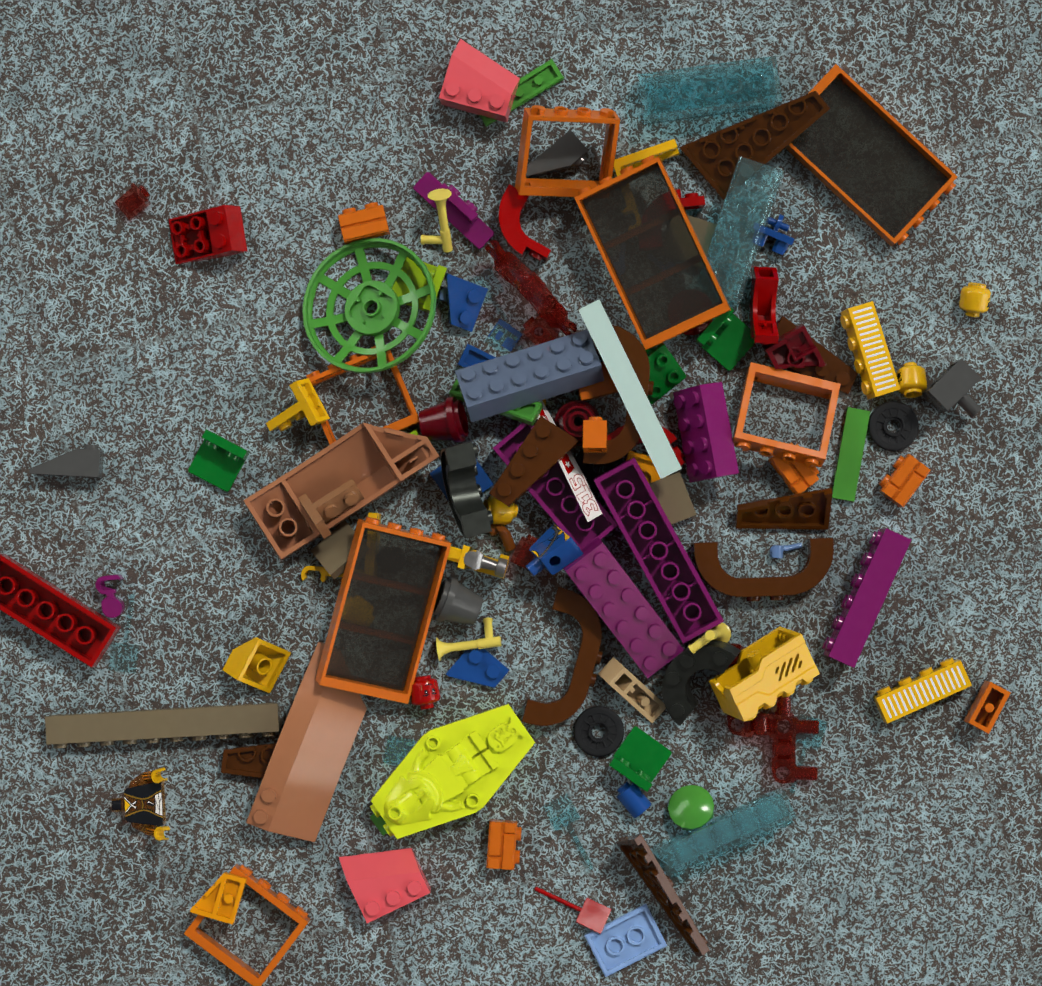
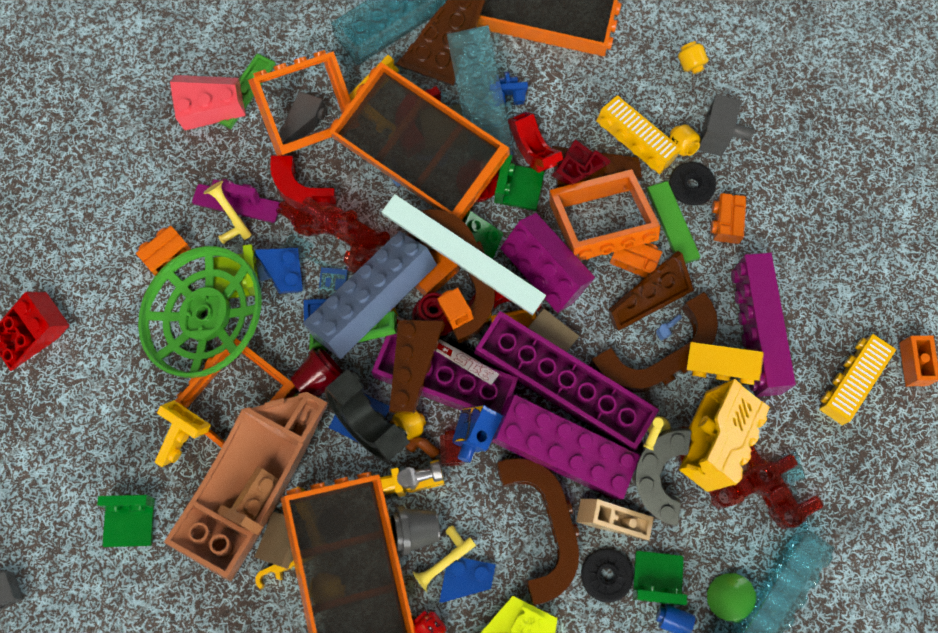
camera: 30 degrees left, 15 degrees down
(805, 614) = (725, 362): none -> yellow brick

